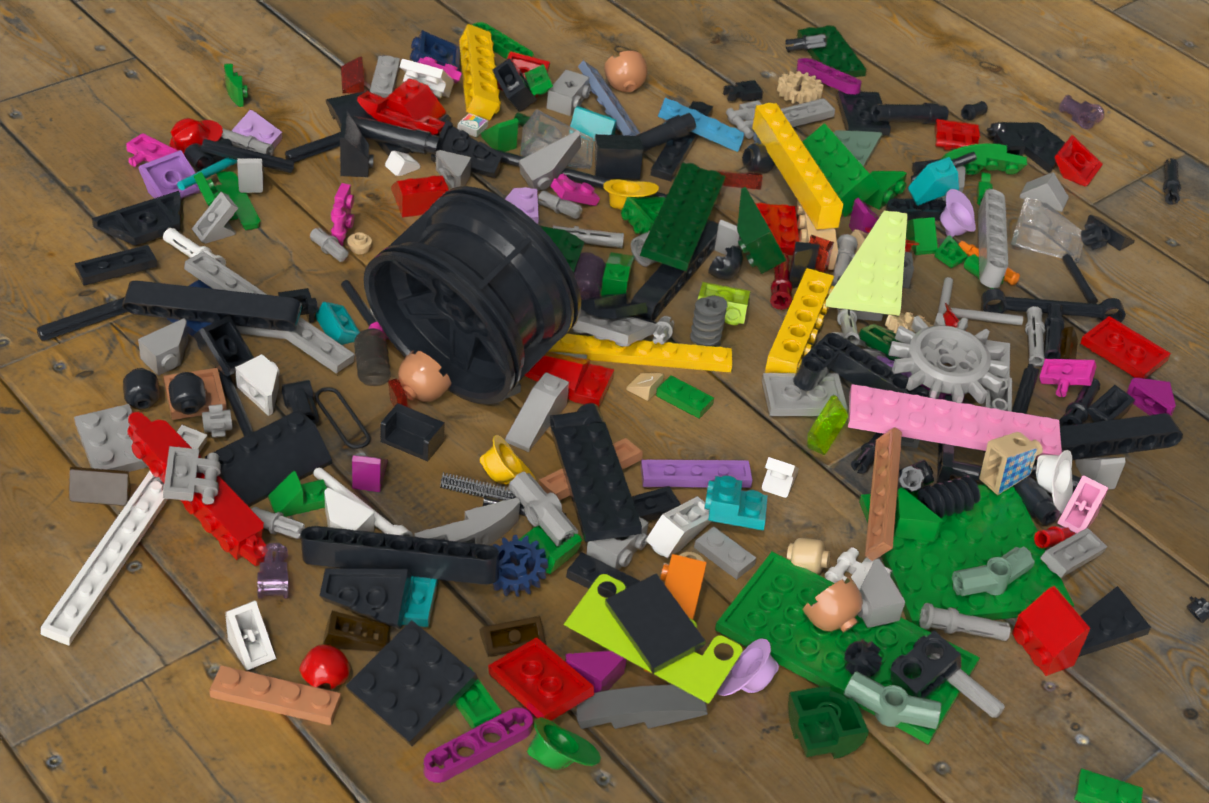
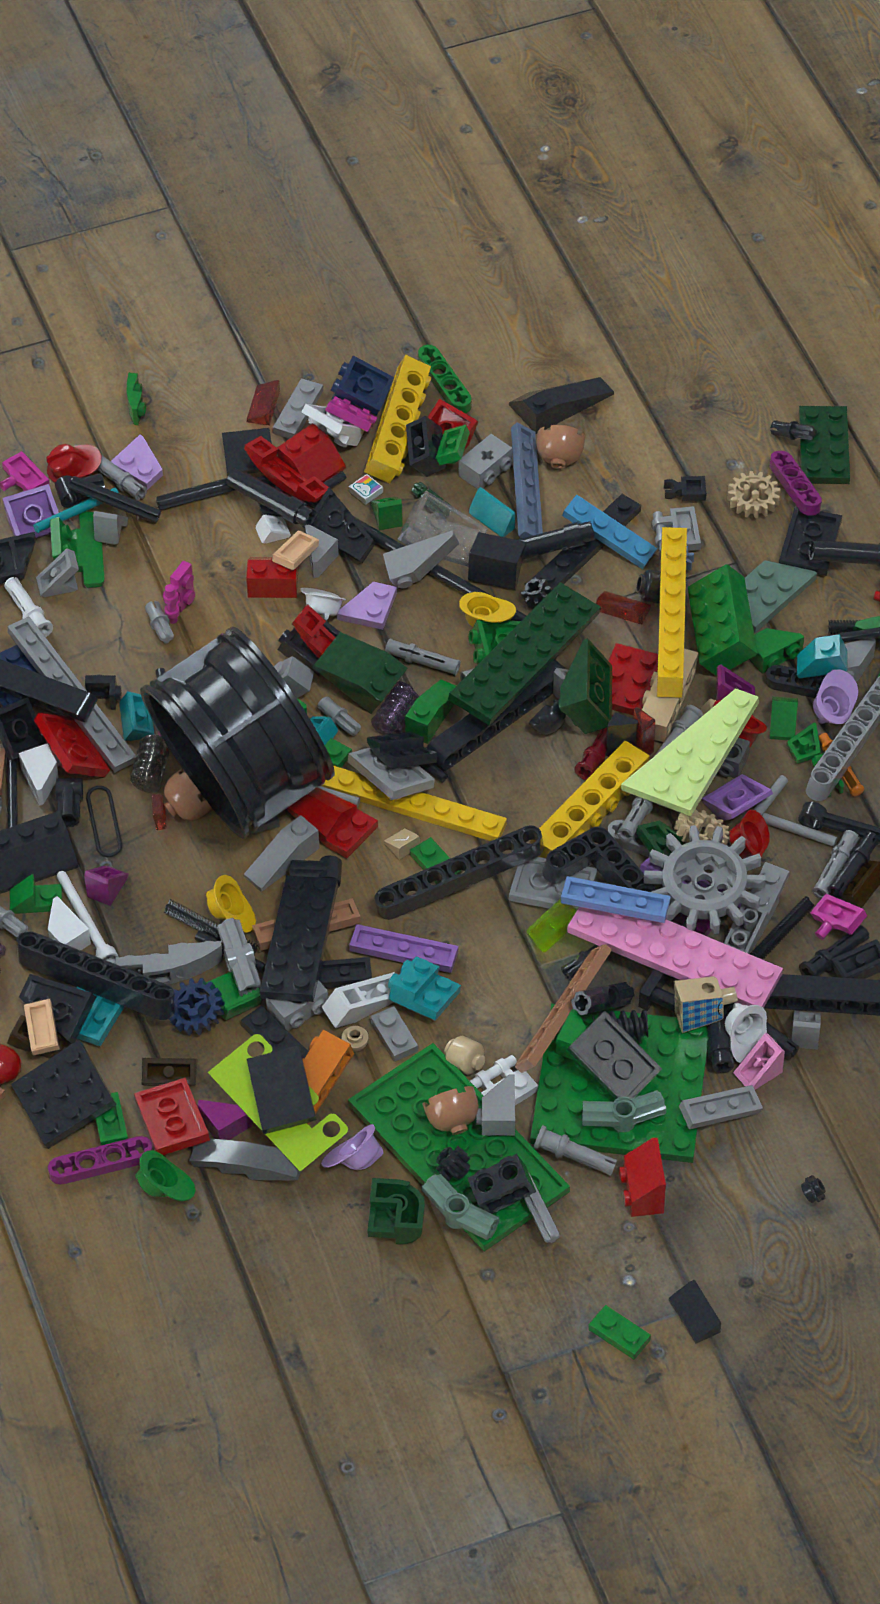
camera: 25 degrees right, 10 degrees up
(284, 352) = (71, 745): none -> red plate
(353, 150) = (221, 508): black slope -> none
(359, 243) = (191, 624): tan plate -> none
(361, 617) = (41, 1027): none -> light nougat tile
(412, 432) = (158, 851): black panel -> none
(439, 166) = (295, 550): none -> light nougat tile
(559, 205) = (411, 611): light grey axle -> none
(575, 192) = (431, 599): dark pink plate -> none
(602, 47) = (560, 402): none -> black wedge
(663, 175) = (535, 591): none -> black gear
(663, 330) = (443, 786): light grey axle -> none
(708, 321) = (489, 787): dark grey piece -> none
(718, 396) = (452, 882): none -> black beam
(736, 300) = (522, 763): lime plate -> none
(779, 477) = (483, 966): white slope -> none
(808, 112) = (738, 531): light grey plate -> none
(887, 386) = (615, 899): none -> medium blue plate
(924, 298) = (736, 797): none -> medium lavender slope
(962, 524) = (614, 1058): none -> black tile
(1052, 536) = (710, 1086): red axle -> none
(1112, 622) = (715, 1182): black wing -> none
(1169, 753) = (695, 1312): none -> black slope

